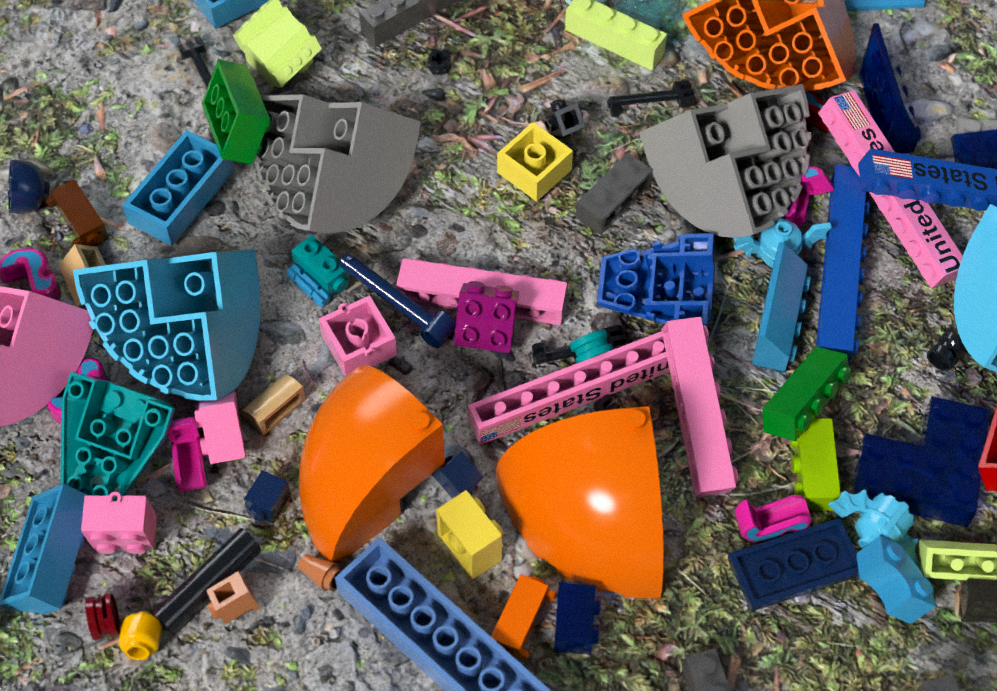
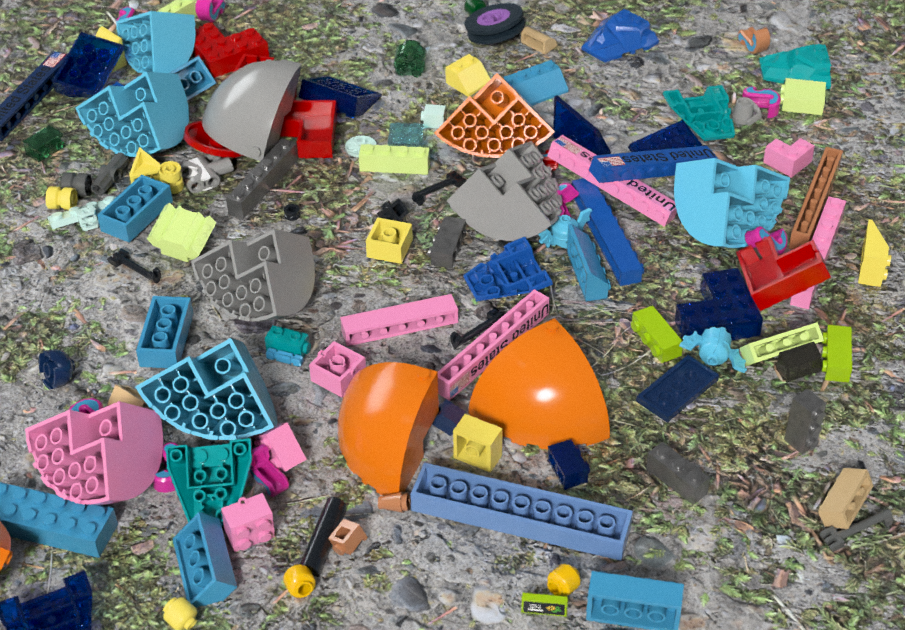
camera: 25 degrees left, 15 degrees down
(78, 214) = (102, 371): reddish brown brick -> none
(102, 616) = (268, 579): dark red wheel -> none
(235, 112) = (181, 273): green brick -> none
(267, 497) = (333, 475): dark blue brick -> none
(274, 404) = (306, 424): tan brick -> none
(435, 327) = (382, 348): dark blue piece -> none
(486, 317) = (414, 327): magenta brick -> none
(521, 615) = (534, 469): orange brick -> none
(590, 345) = (487, 319): teal wheel -> none
(698, 407) = (558, 305): bright pink brick -> none
(772, 519) = (651, 368): dark pink animal -> none
(805, 393) = (630, 297): green brick -> none
(895, 579) = (740, 370): dark azure brick -> none
(945, 353) = (693, 252): black wheel -> none

